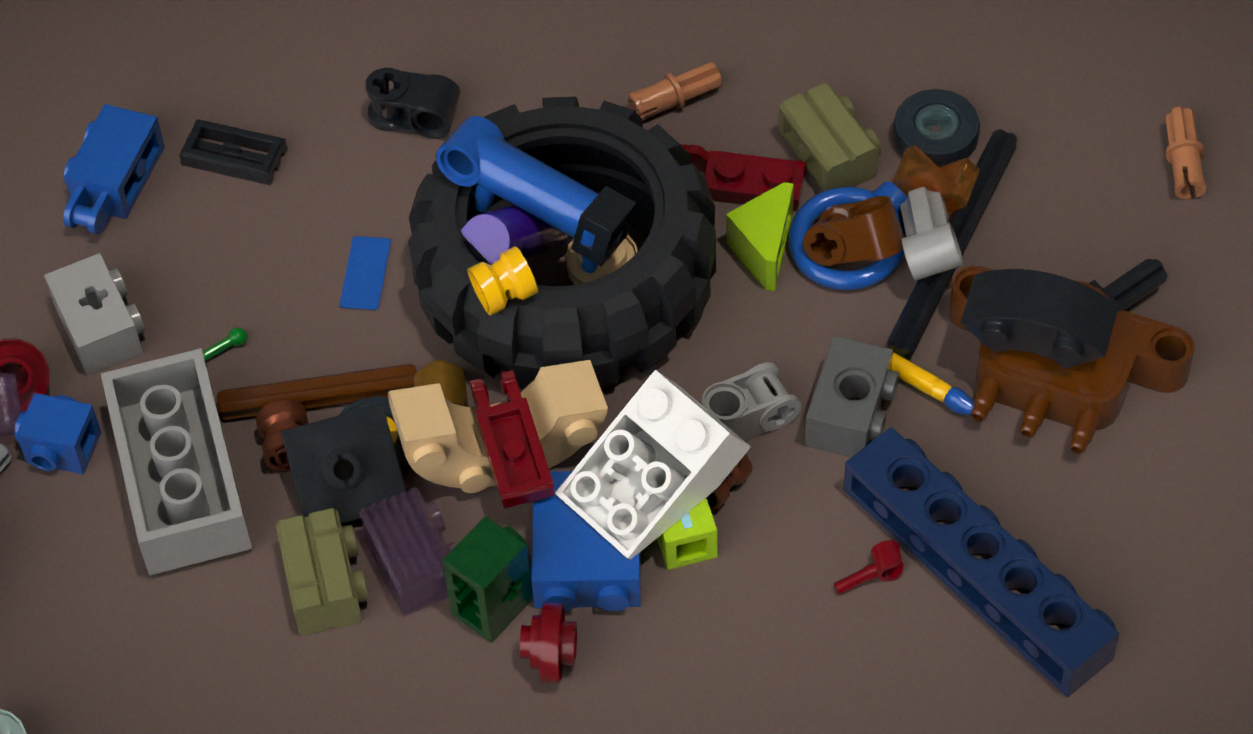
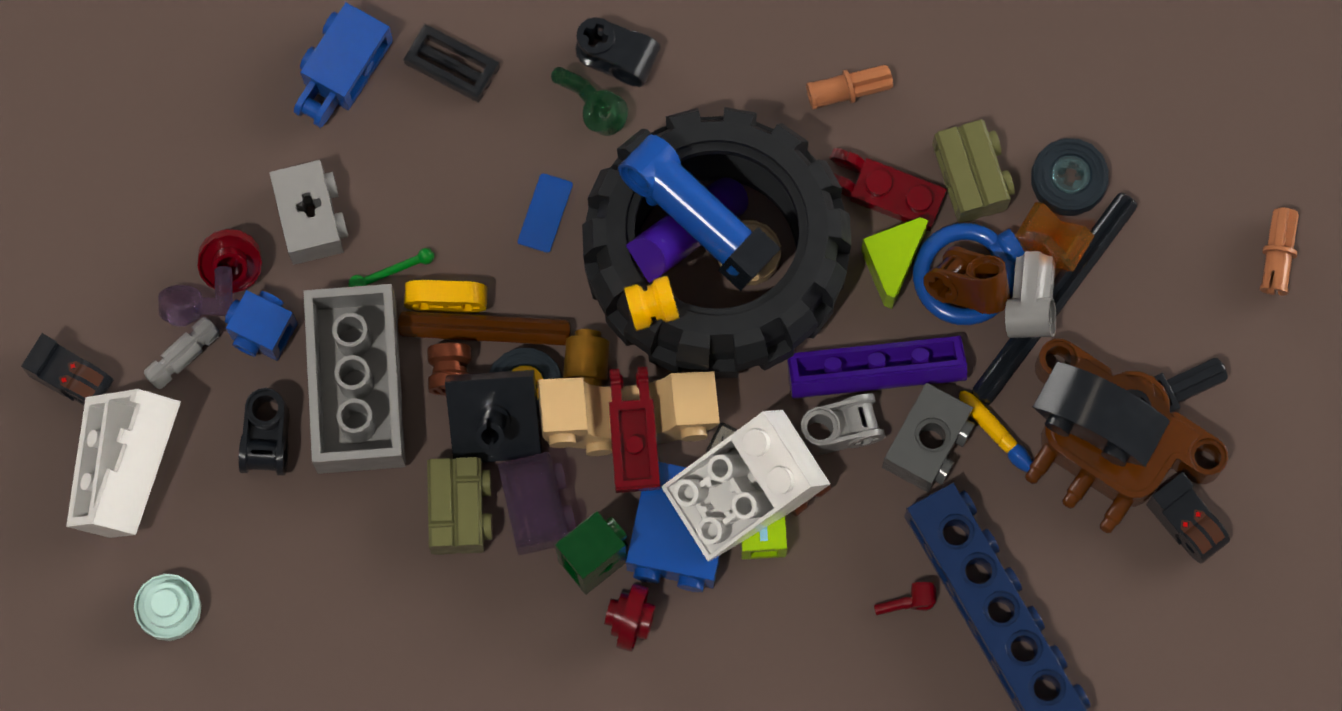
camera: 10 degrees right, 20 degrees up
(79, 547) = (264, 442): none -> black piece
(267, 363) = (445, 296): none -> yellow beam
(407, 159) = (597, 103): none -> clear green plate
(773, 339) = (876, 367): none -> dark purple brick
(1166, 420) = (1188, 519): none -> black leg

